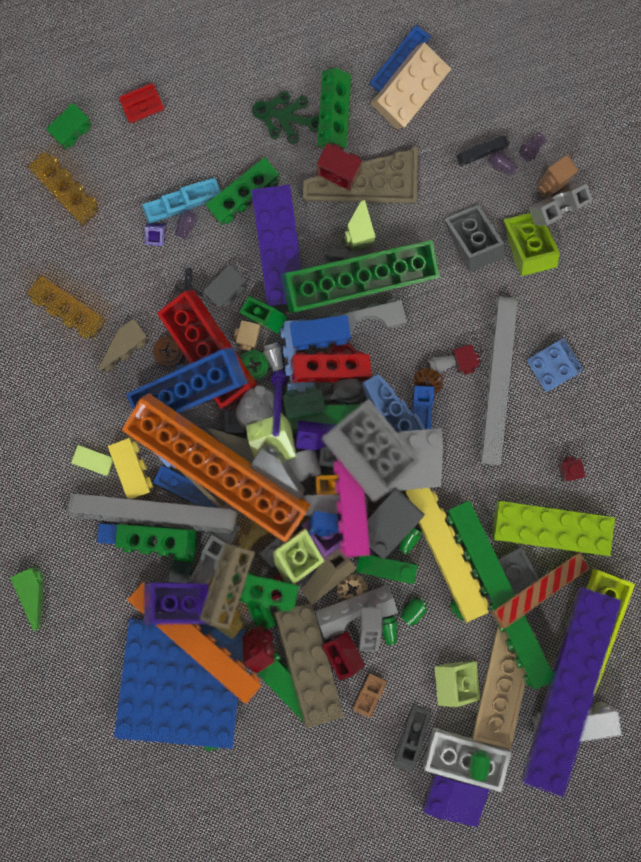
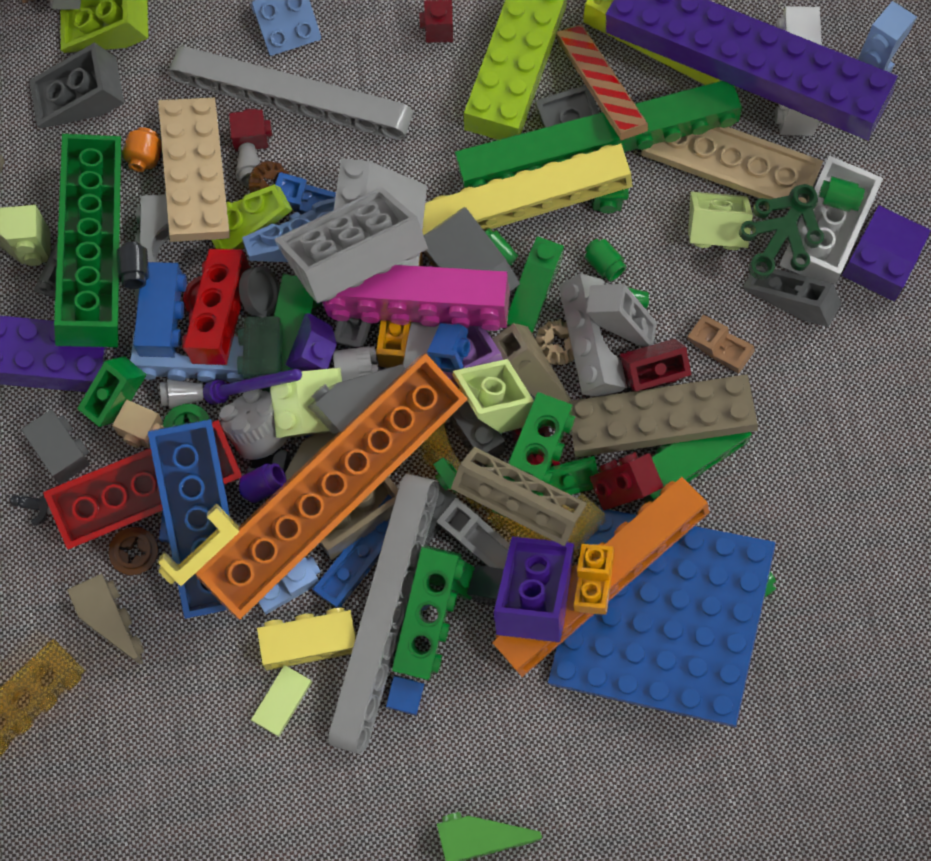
camera: 75 degrees left, 15 degrees down
(156, 399) = (203, 553): none -> light yellow panel
(187, 639) = (593, 579): none -> light orange slope
(218, 422) = (262, 482): none -> dark purple brick
(240, 537) = (446, 473): none -> green plate
(341, 310) = (132, 265): none -> black brick
(397, 370) = (252, 214): none -> lime wing
(427, 329) = (193, 170): none -> tan plate
(438, 292) = (142, 149): none -> orange head
(449, 730) = (785, 228): none -> dark green plant
(593, 782) = (887, 36): none -> light blue arch

